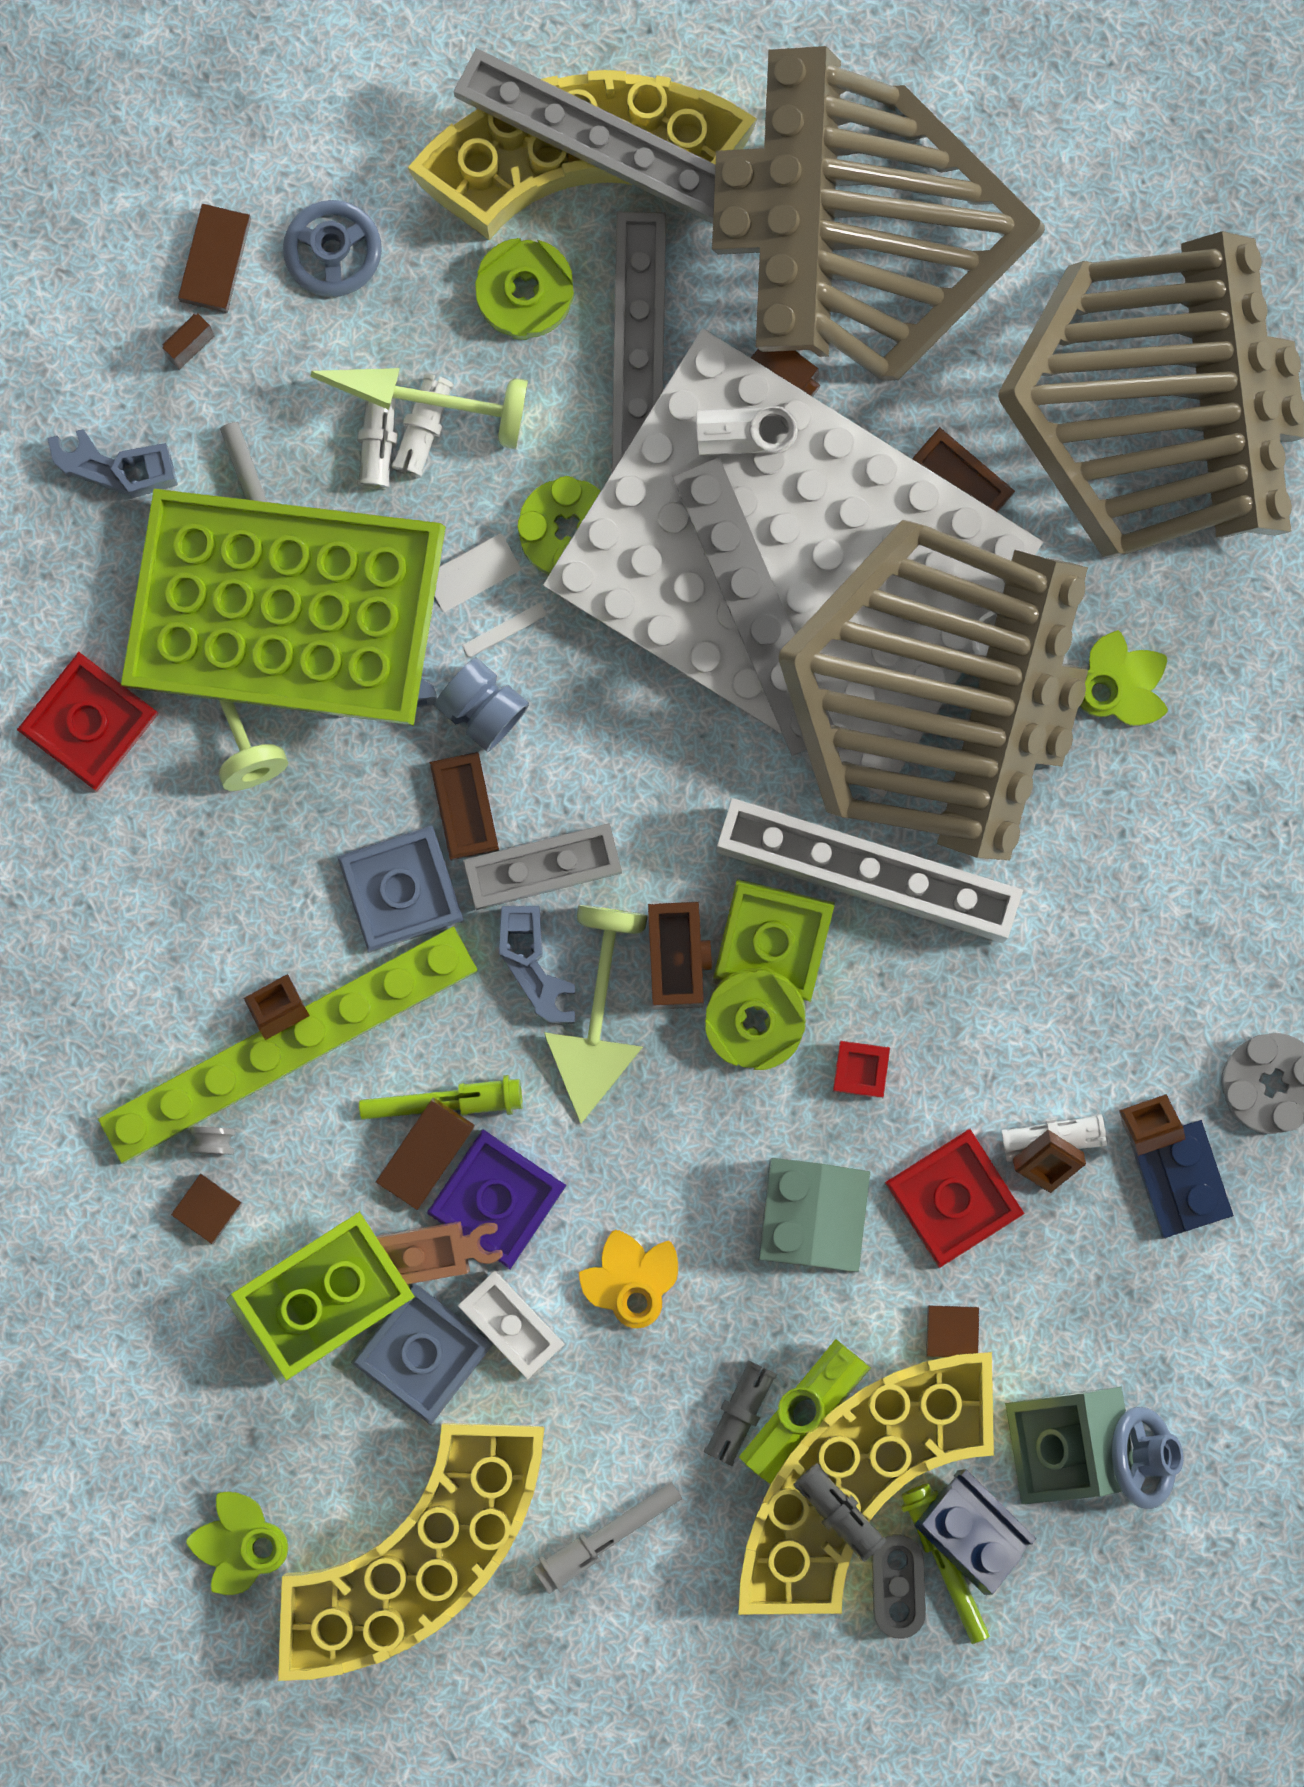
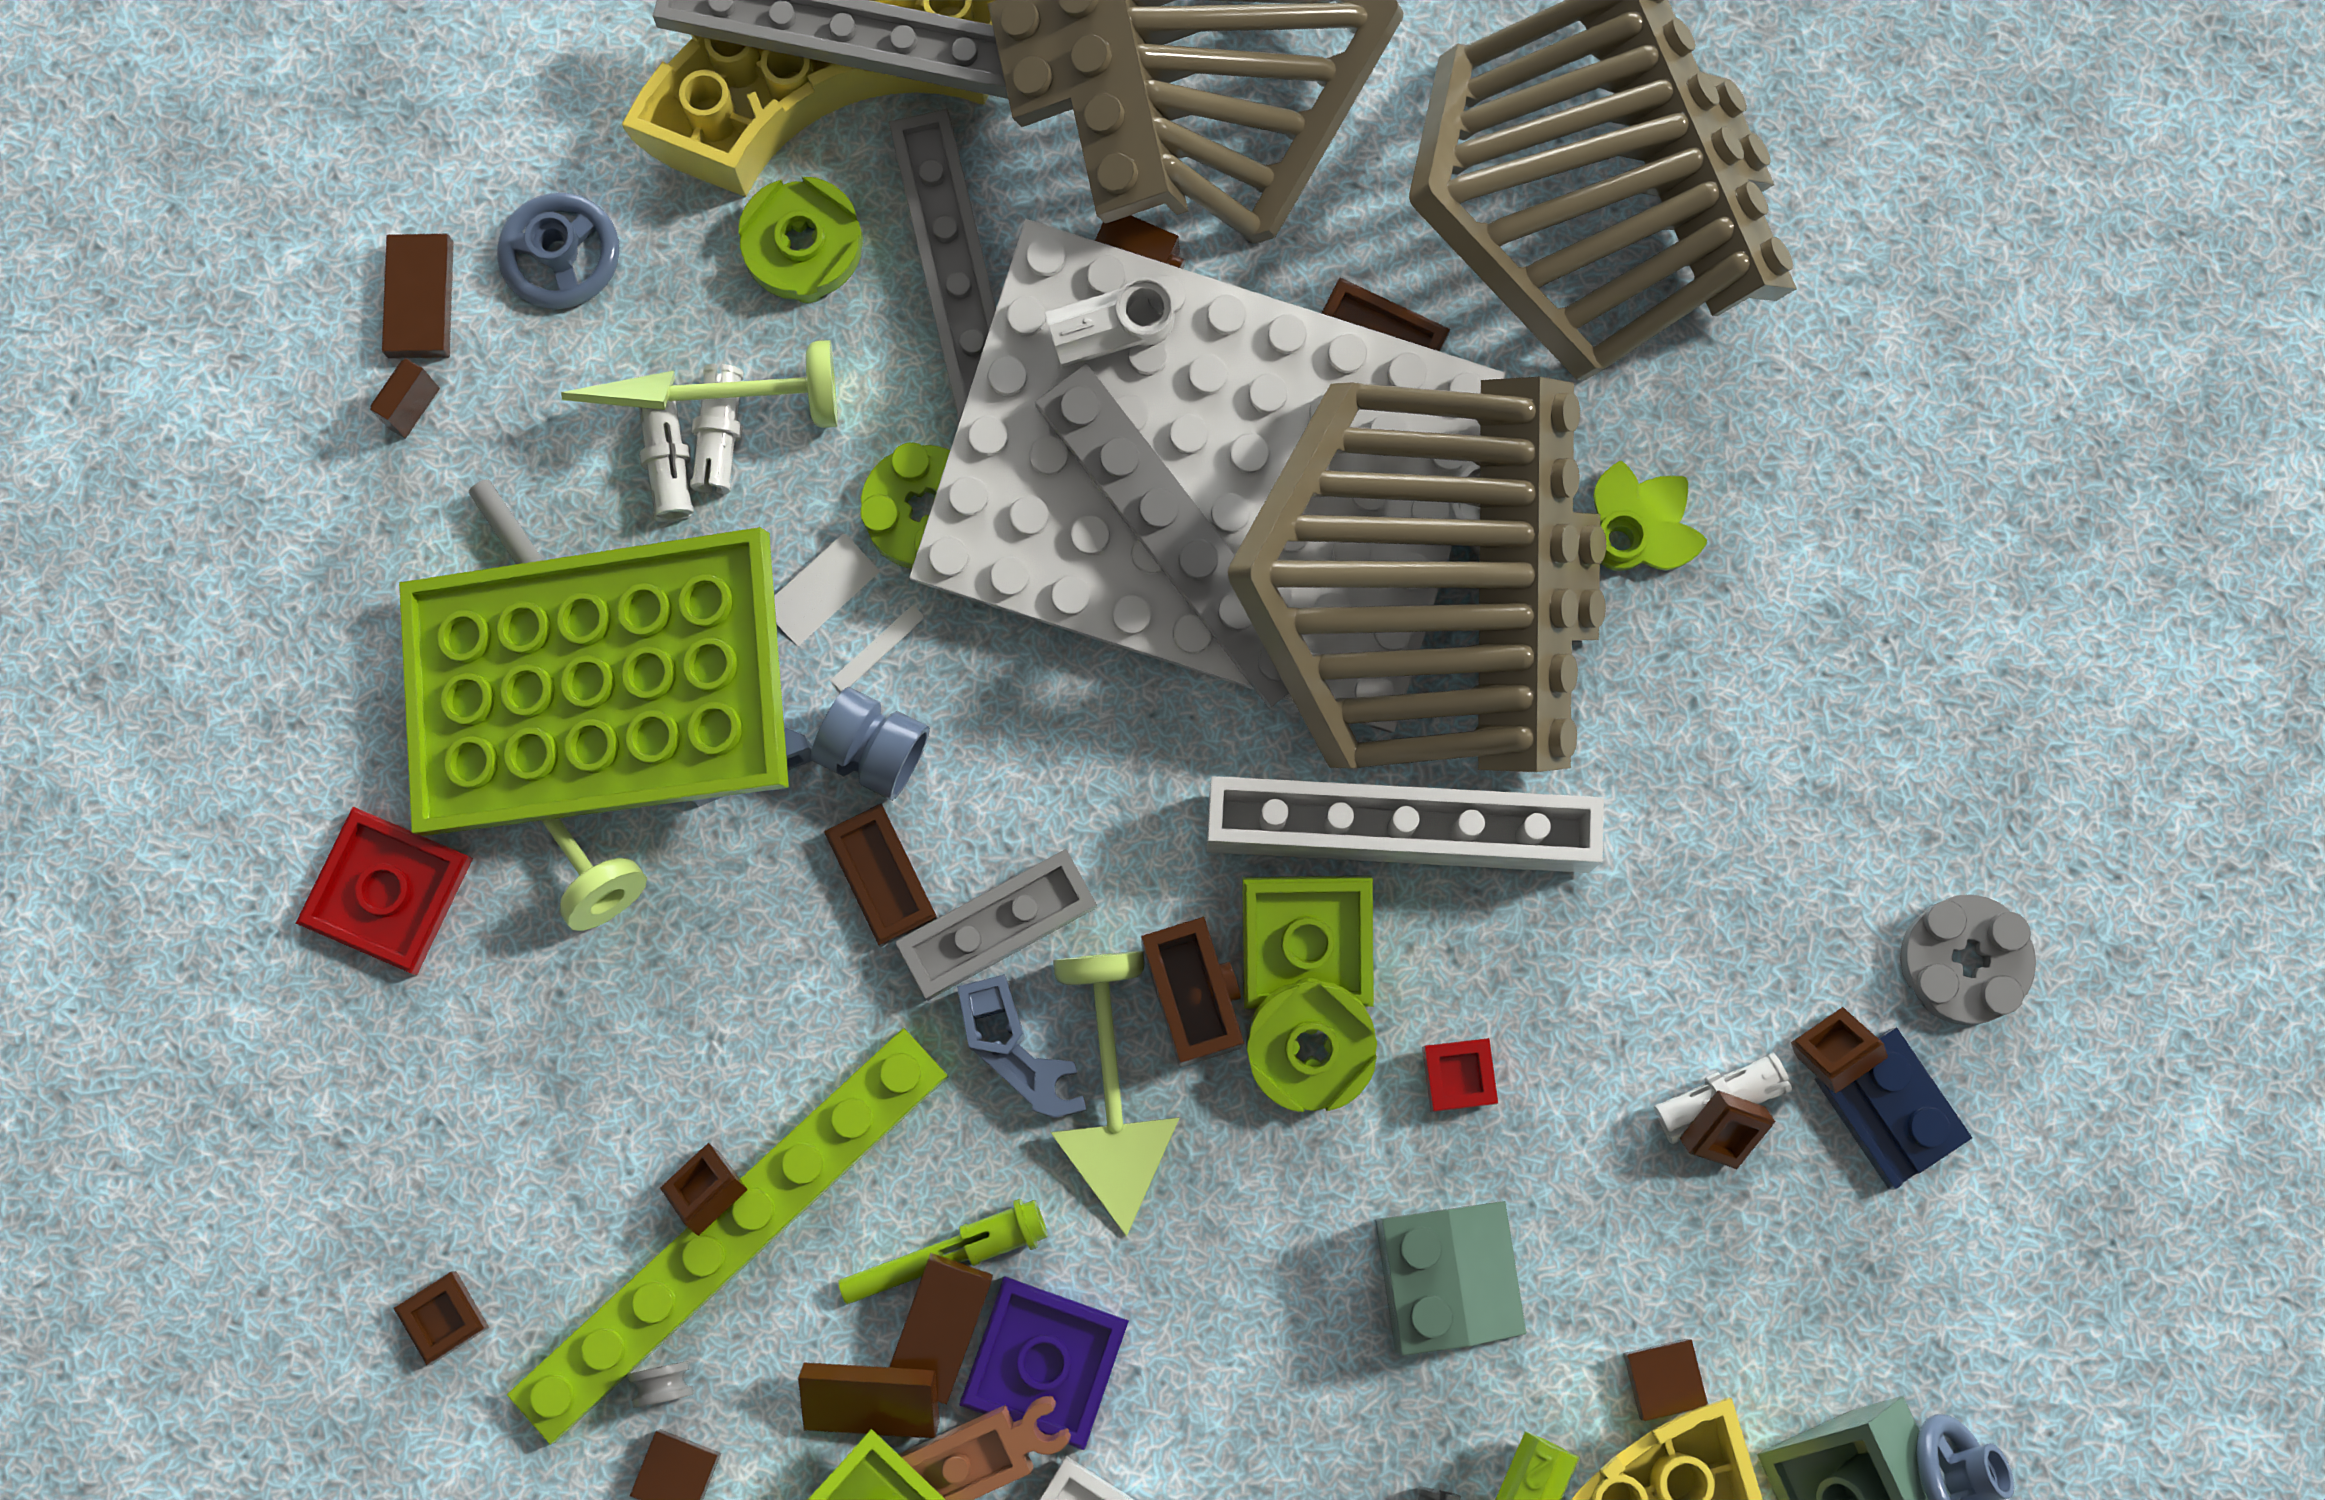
camera: 15 degrees left, 5 degrees down
(61, 1051) = (441, 1318): none -> reddish brown tile
(108, 472) = (335, 579): sand blue piece -> none
(357, 1188) = (869, 1398): none -> reddish brown tile
(400, 889) = (826, 999): sand blue tile -> none
(628, 1271) = (1236, 1411): yellow plate -> none
(954, 1198) = (1619, 1207): red tile -> none

